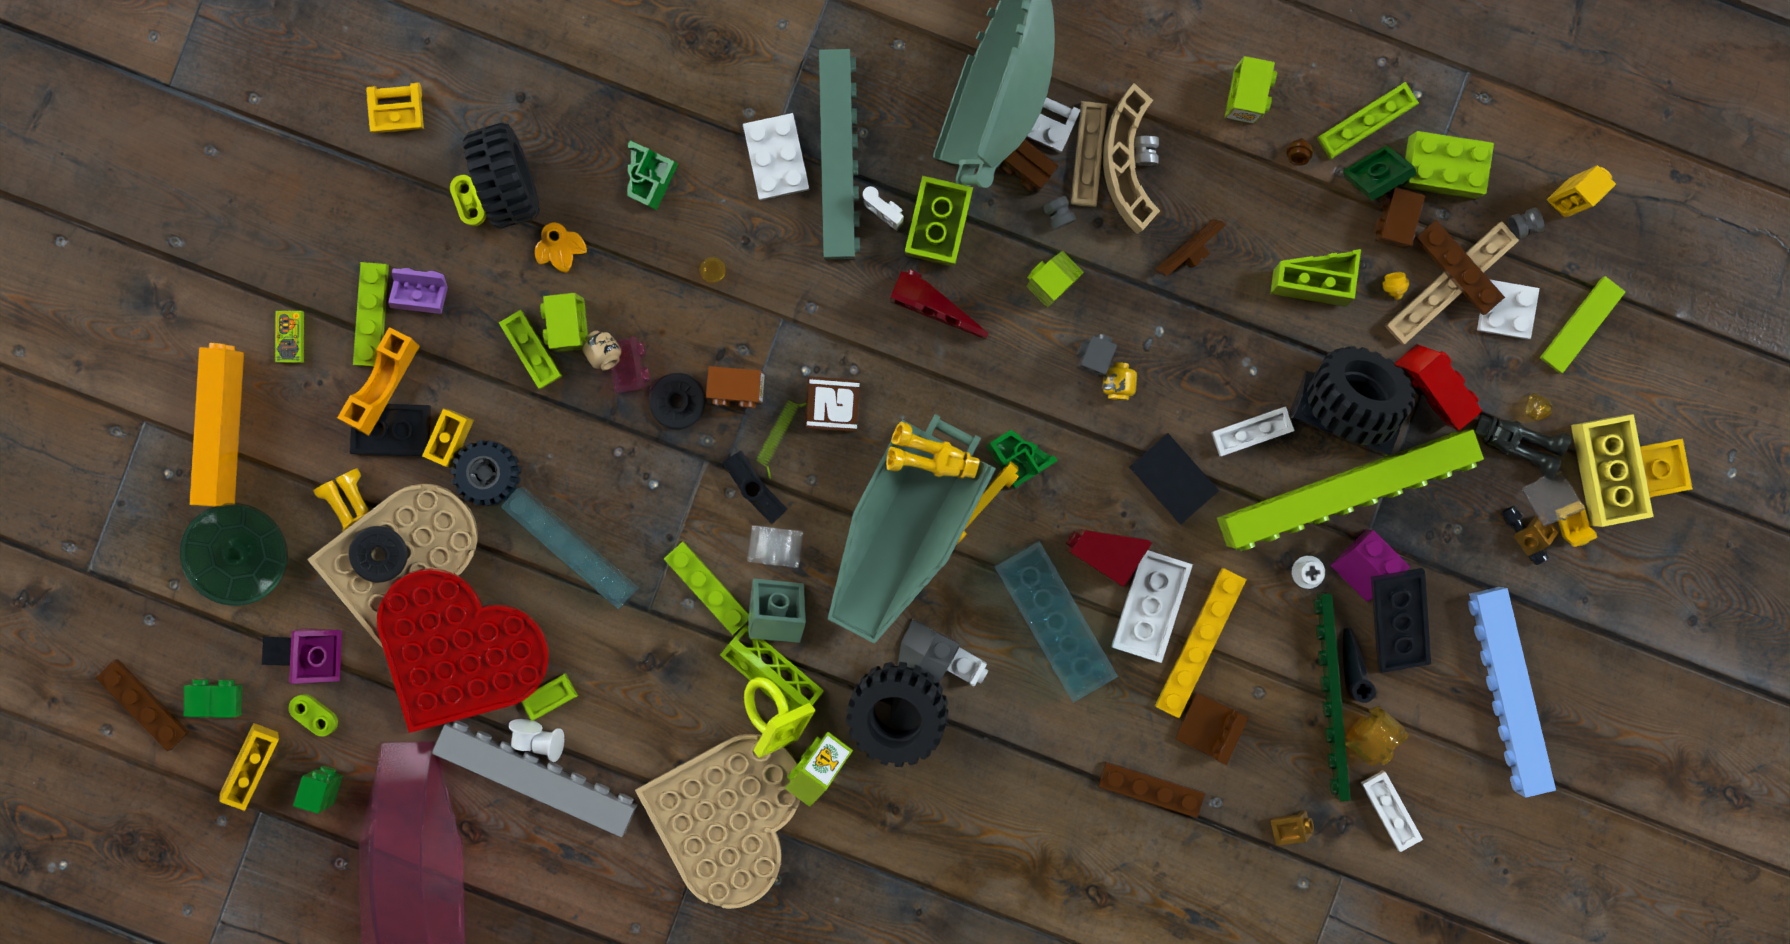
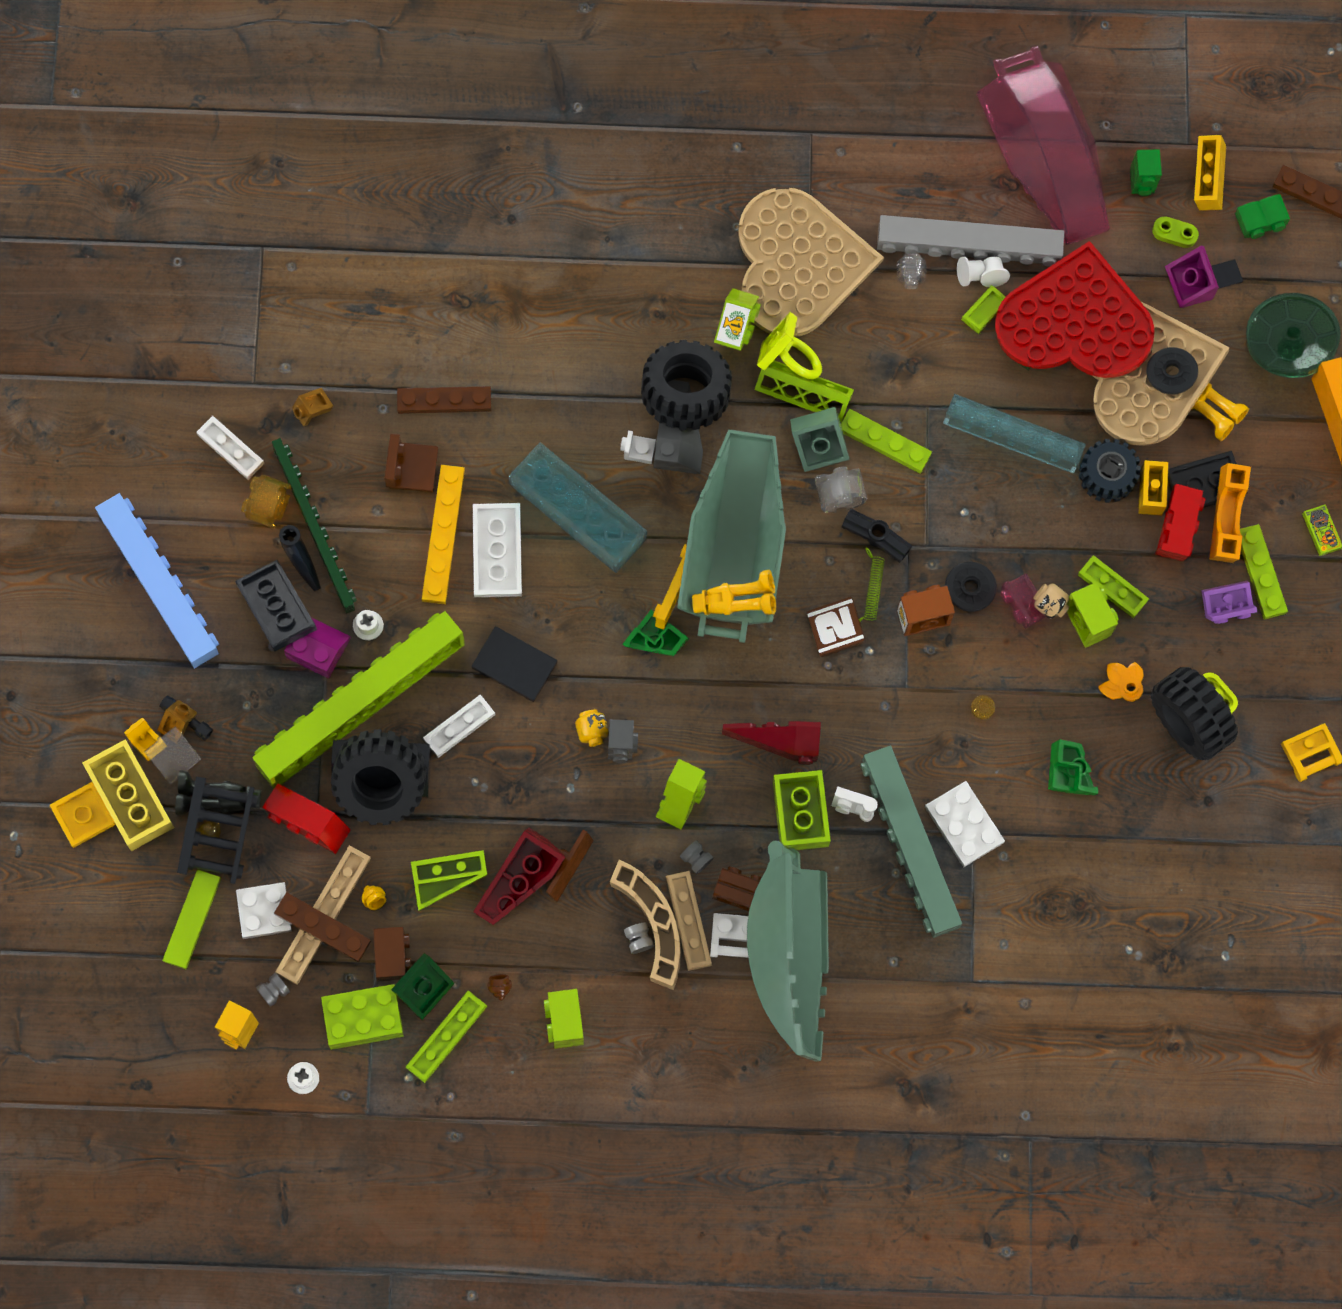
camera: 155 degrees right, 15 degrees down
(435, 388) = (1180, 523): none -> red wedge
(610, 765) = (911, 270): none -> clear head
(1108, 553) = (553, 577): dark red slope -> none
(1236, 256) = (523, 872): none -> dark red wedge
(1521, 129) = (303, 1078): none -> white piece
(1552, 423) = (198, 814): none -> black fence

